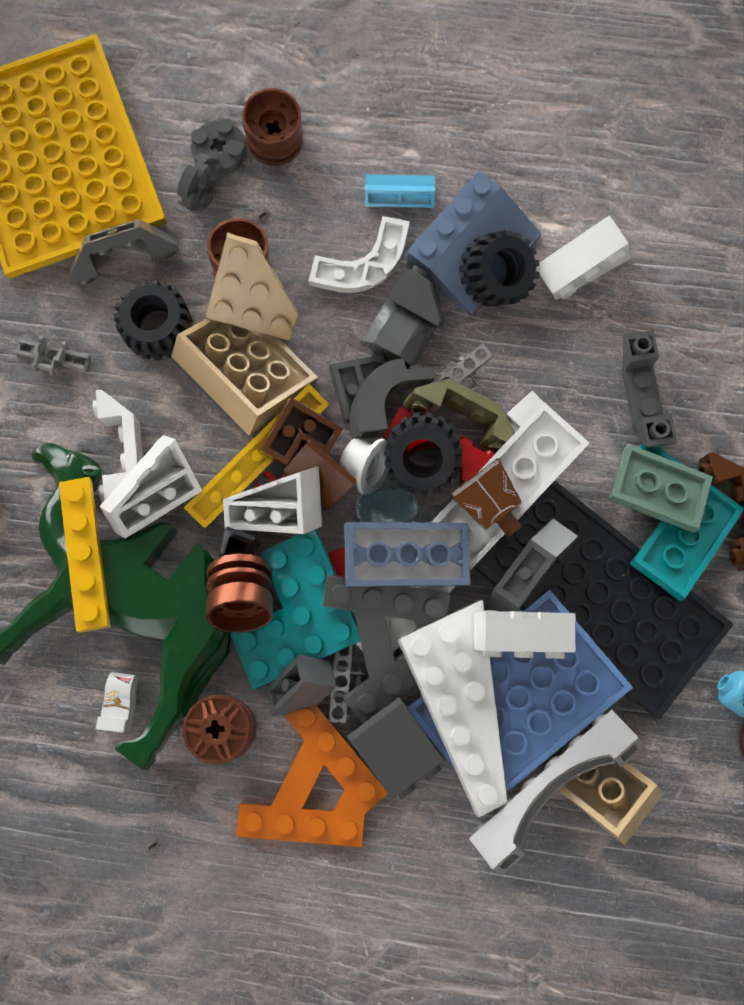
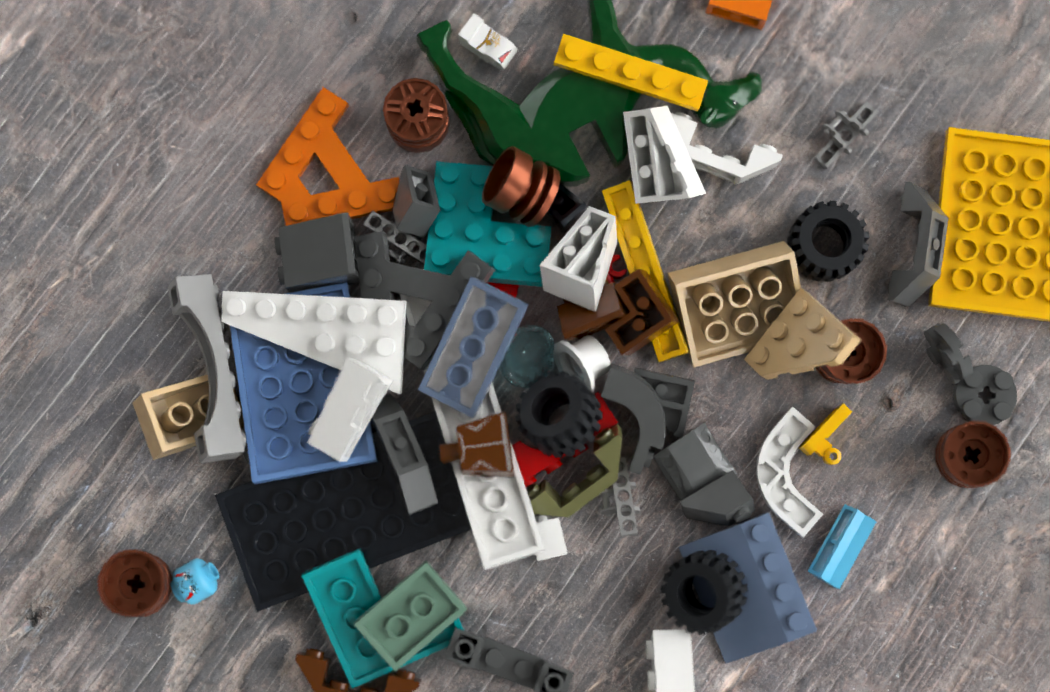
camera: 115 degrees right, 5 degrees up
(309, 246) = (817, 441): none -> yellow piece

